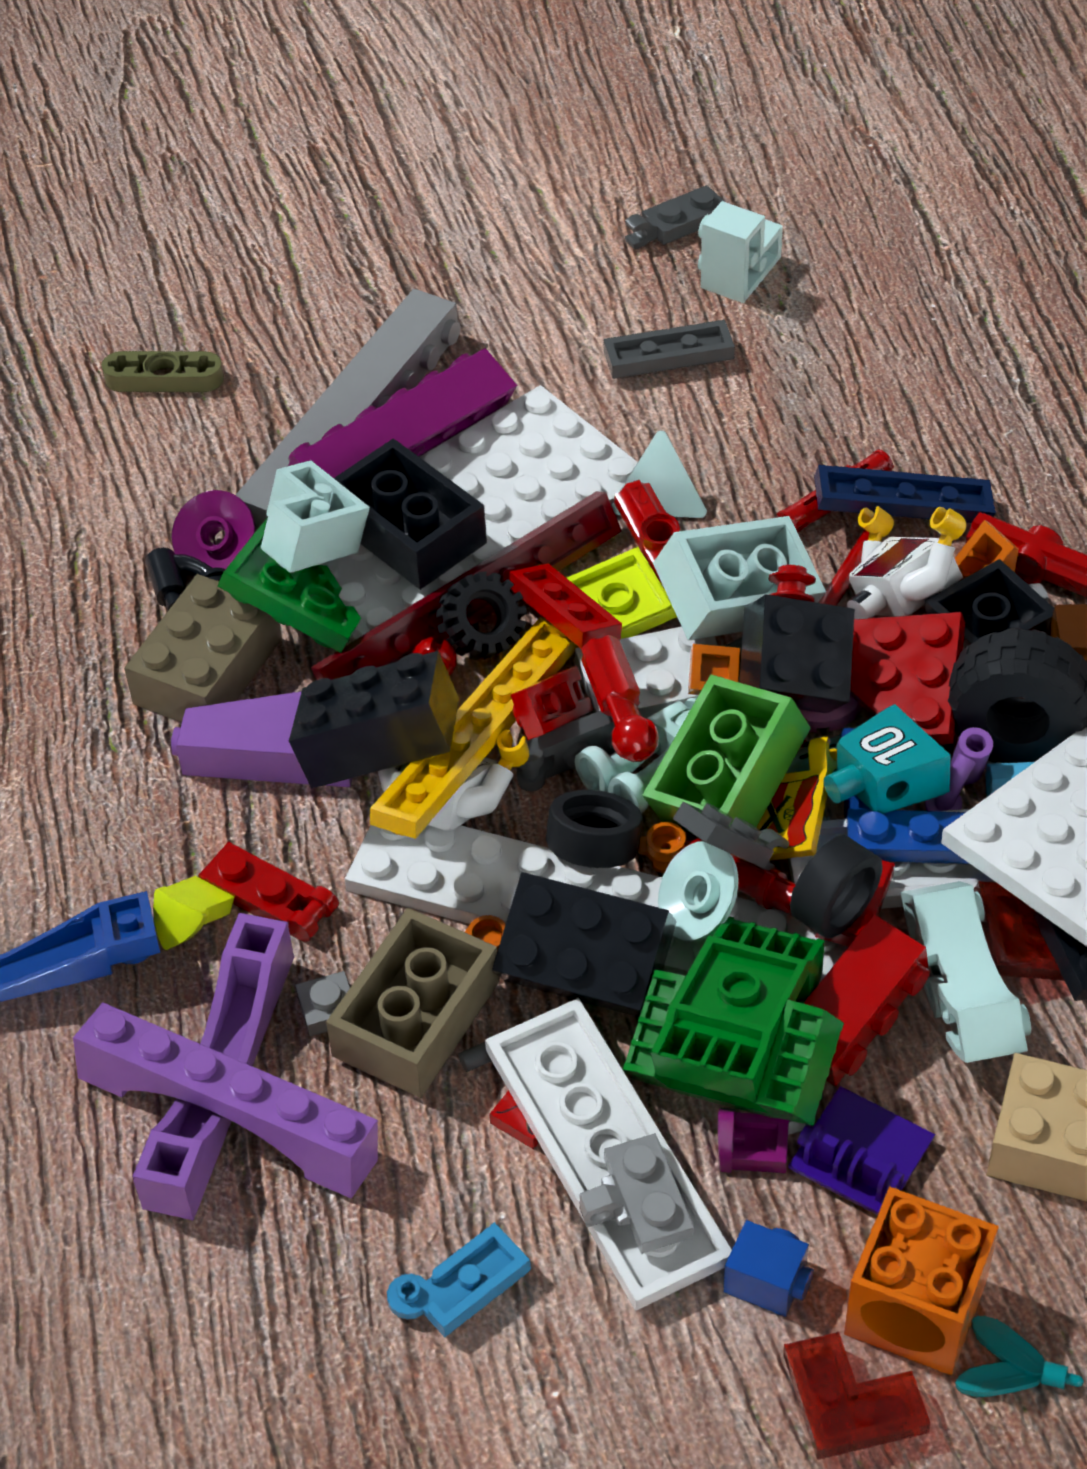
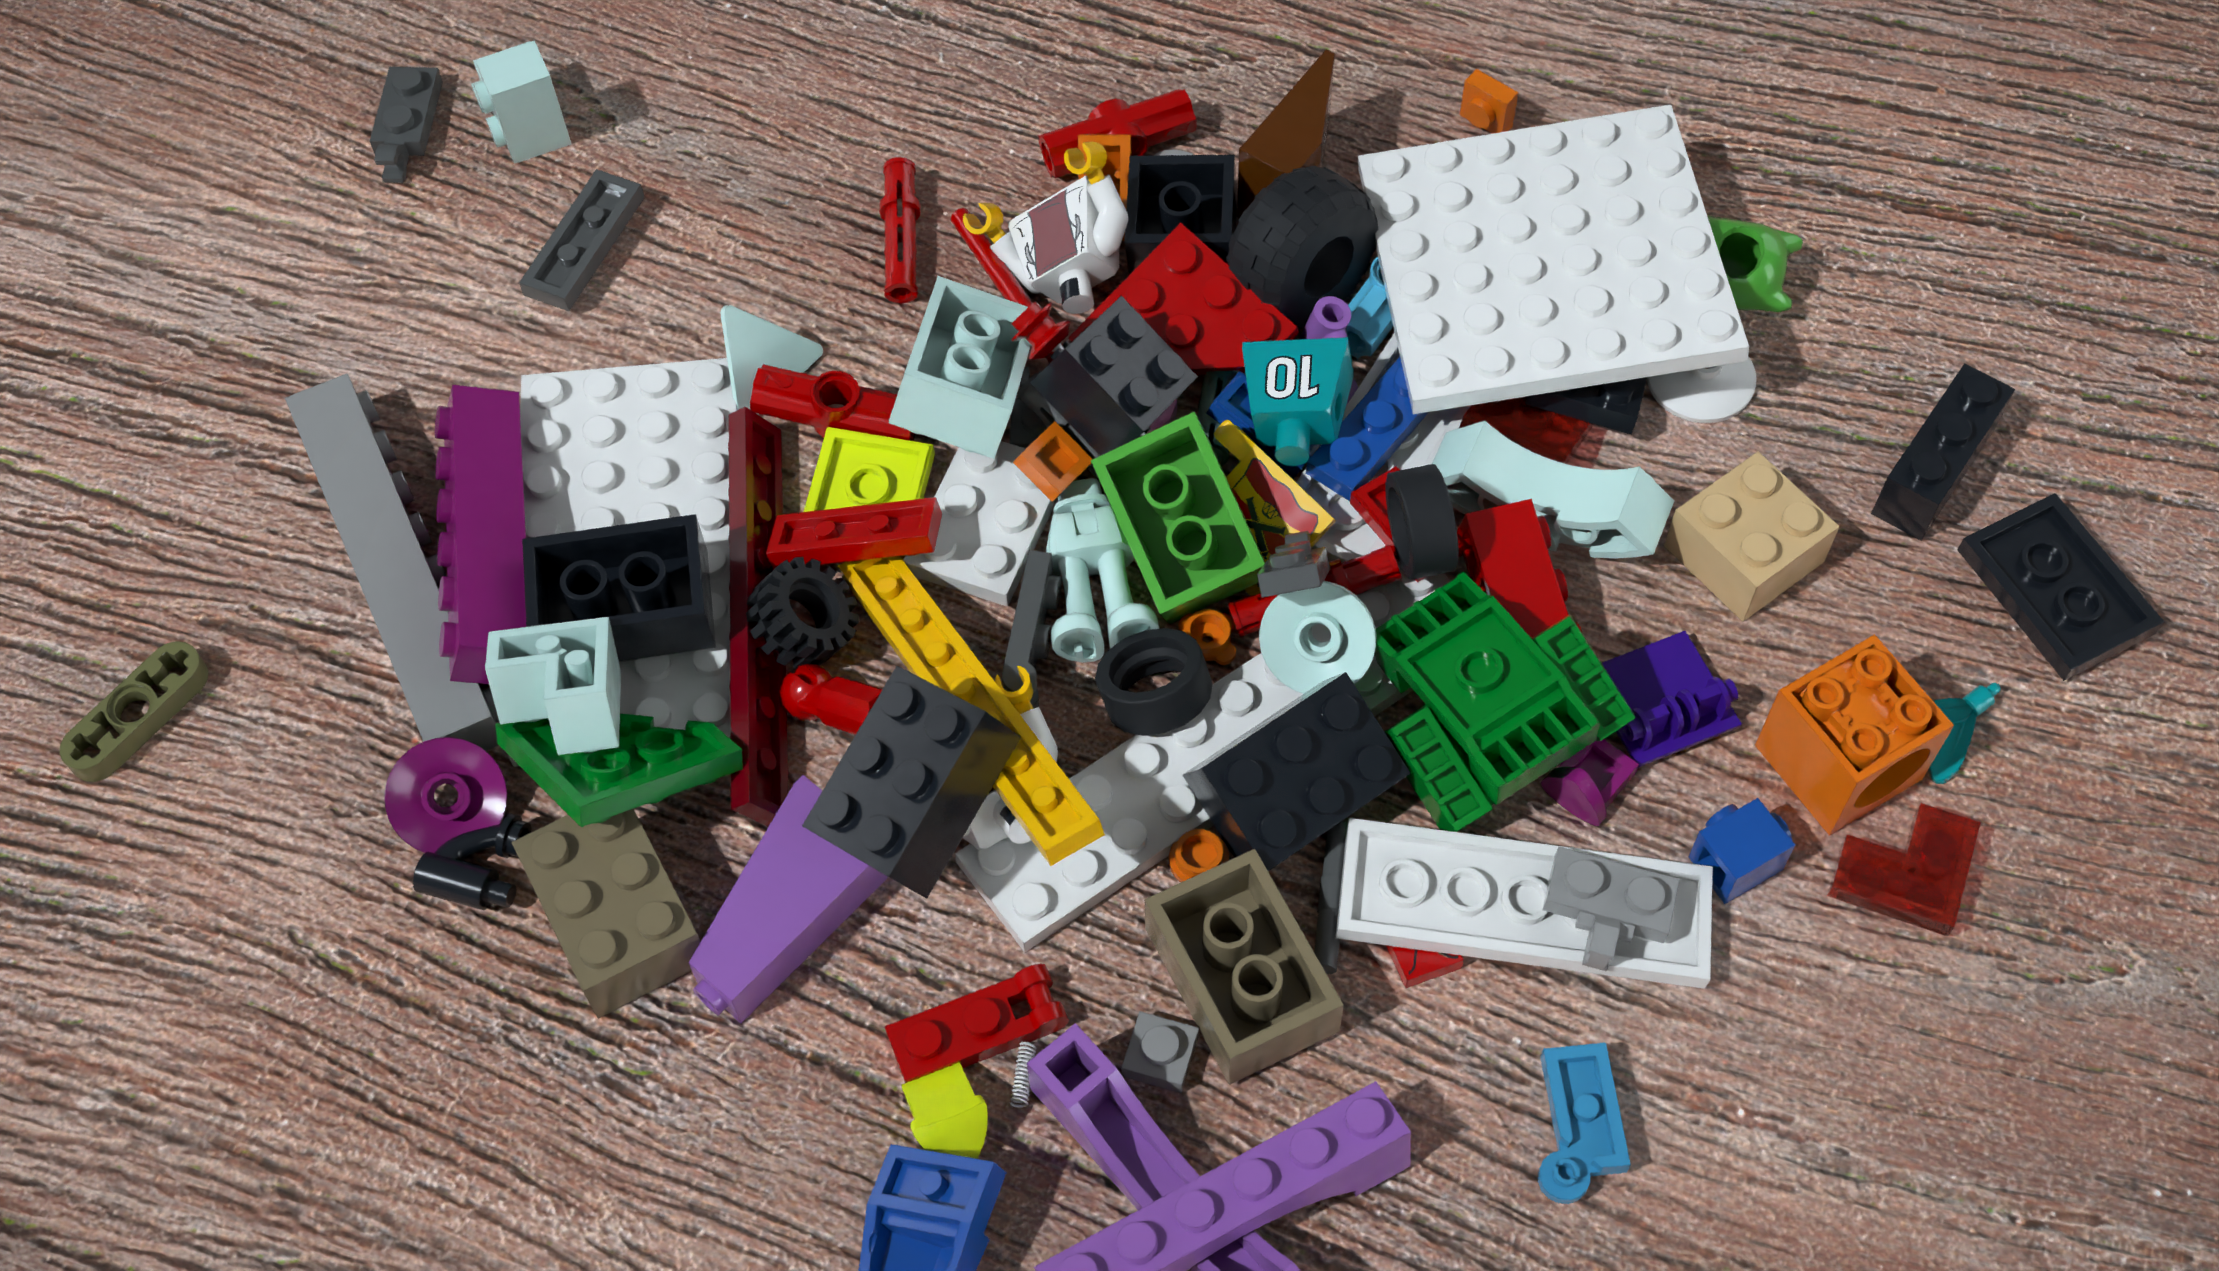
camera: 55 degrees left, 10 degrees up
(550, 703) = (984, 619): red plate -> none
(618, 697) = (1029, 555): red piece -> none
(901, 492) = (962, 179): dark blue plate -> none

